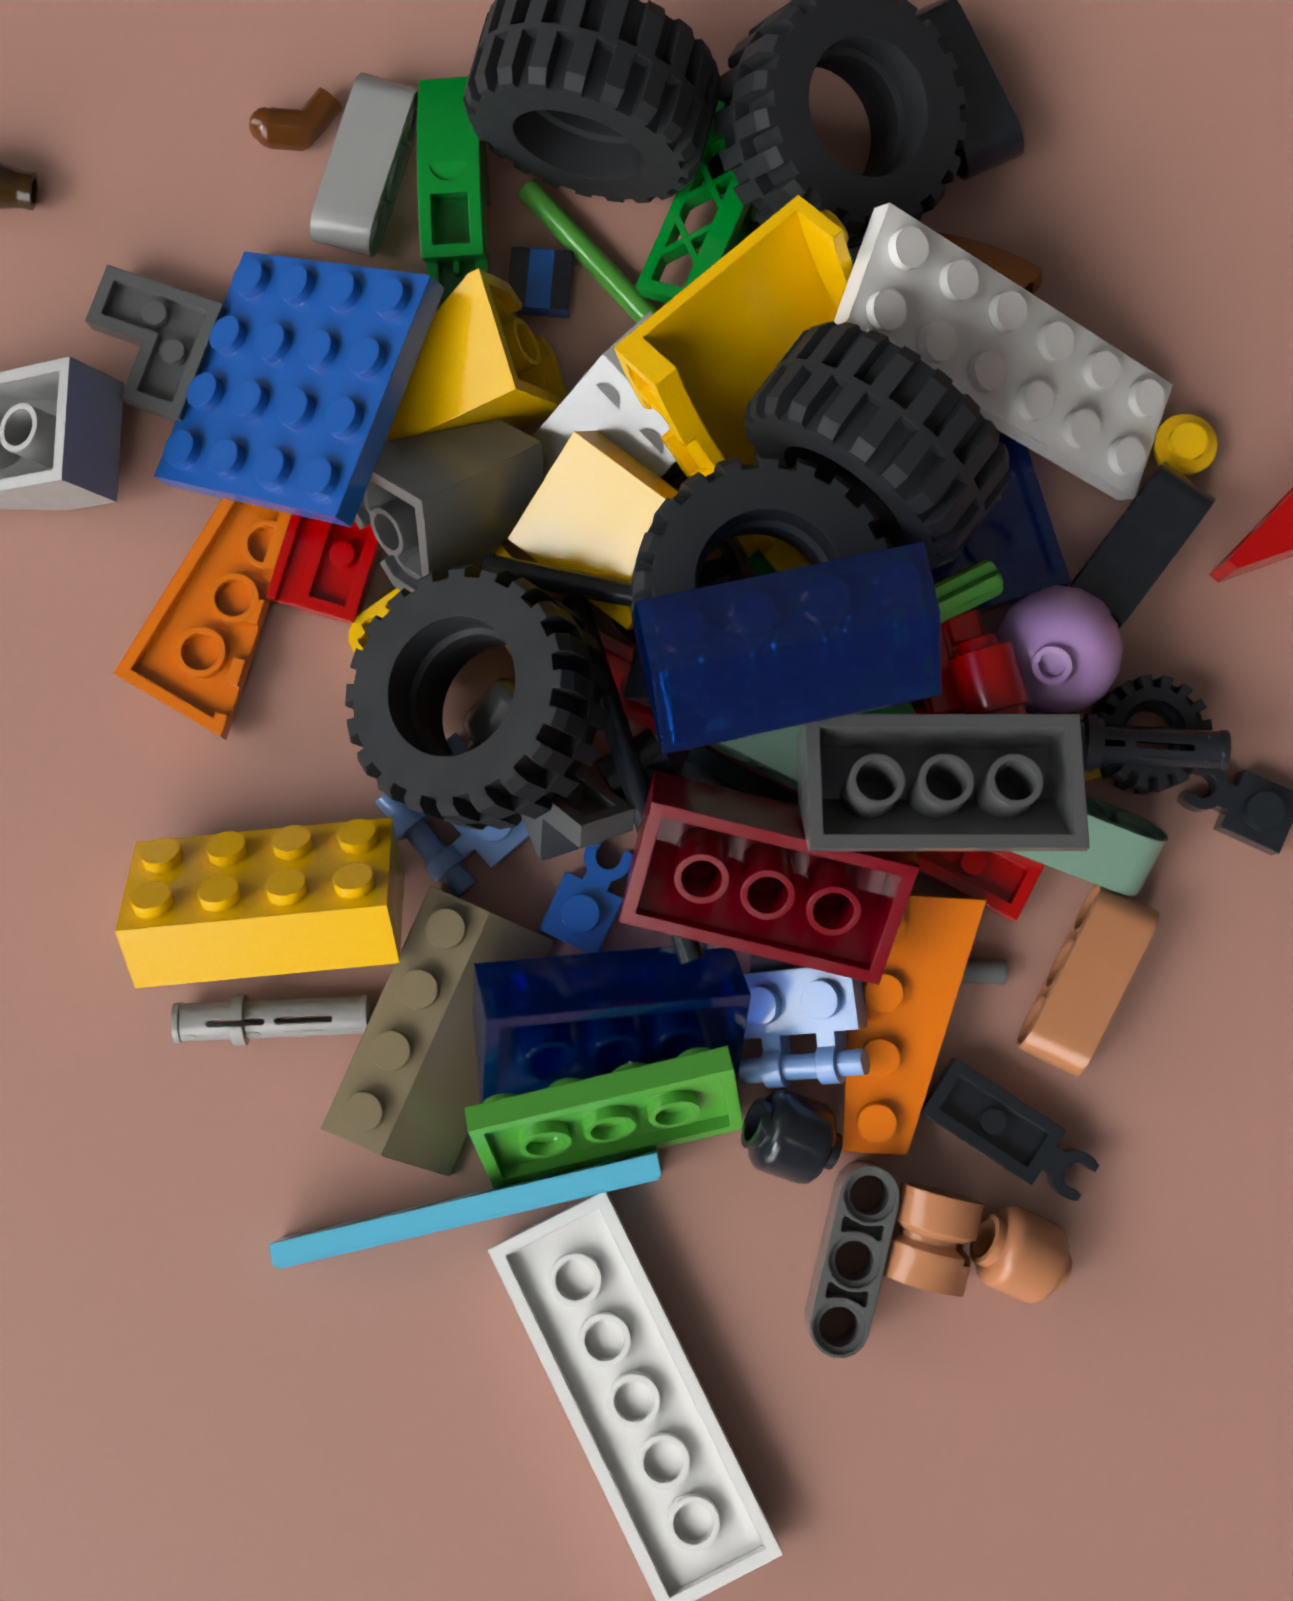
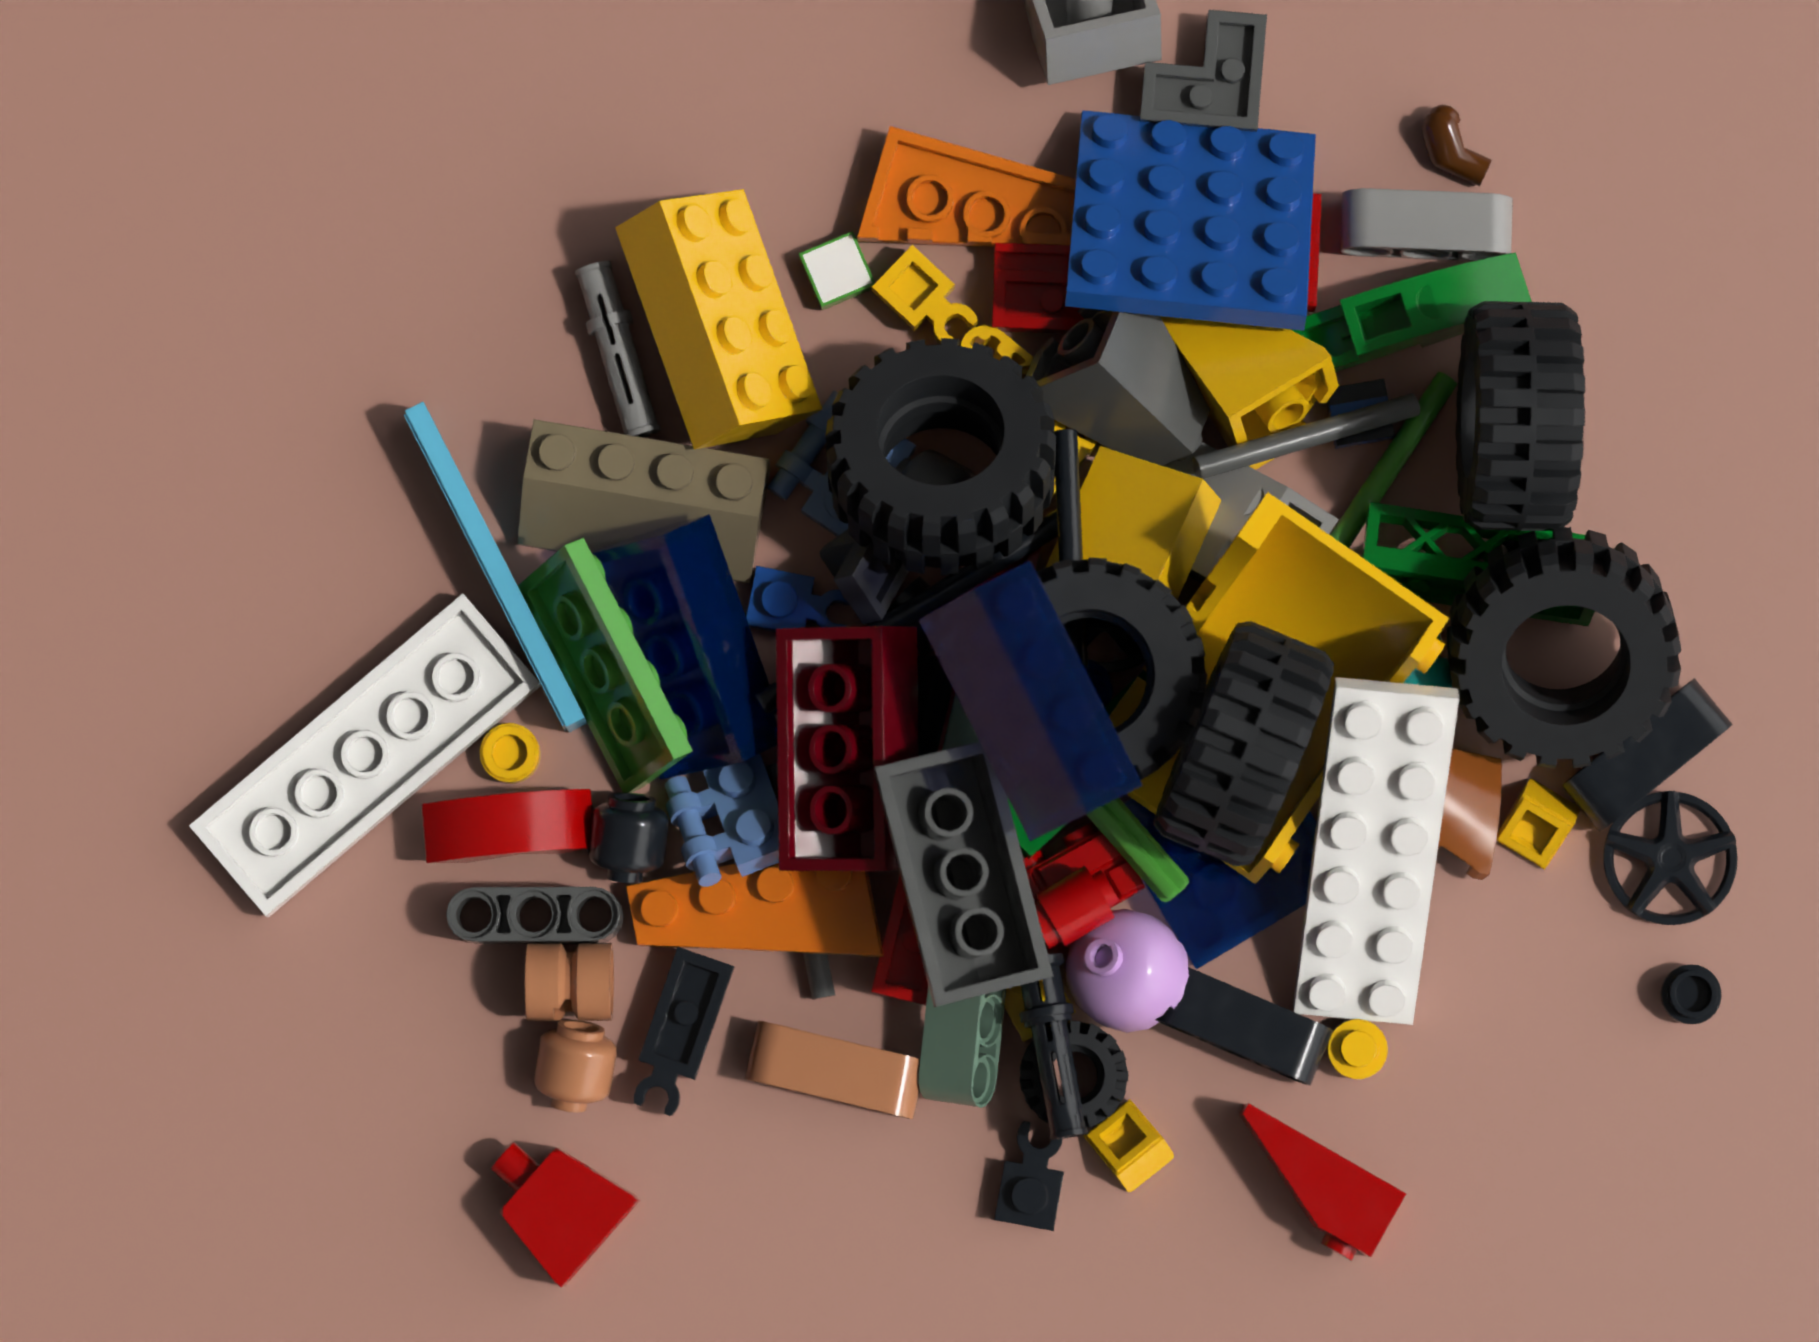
camera: 70 degrees right, 0 degrees up
(250, 768) = (837, 270): none -> white tile
(295, 690) = (919, 292): none -> yellow plate
(552, 331) = (1306, 436): none -> dark grey bar
(669, 1239) = (510, 753): none -> yellow tile
(750, 1265) = (507, 825): none -> red brick
(997, 212) = (1538, 823): none -> yellow slope
(1064, 96) = (1671, 858): none -> black wheel
(1171, 1306) = (561, 1208): none -> red torso
(1203, 109) = (1691, 994): none -> black plate
(1231, 695) = (1129, 1146): none -> yellow slope

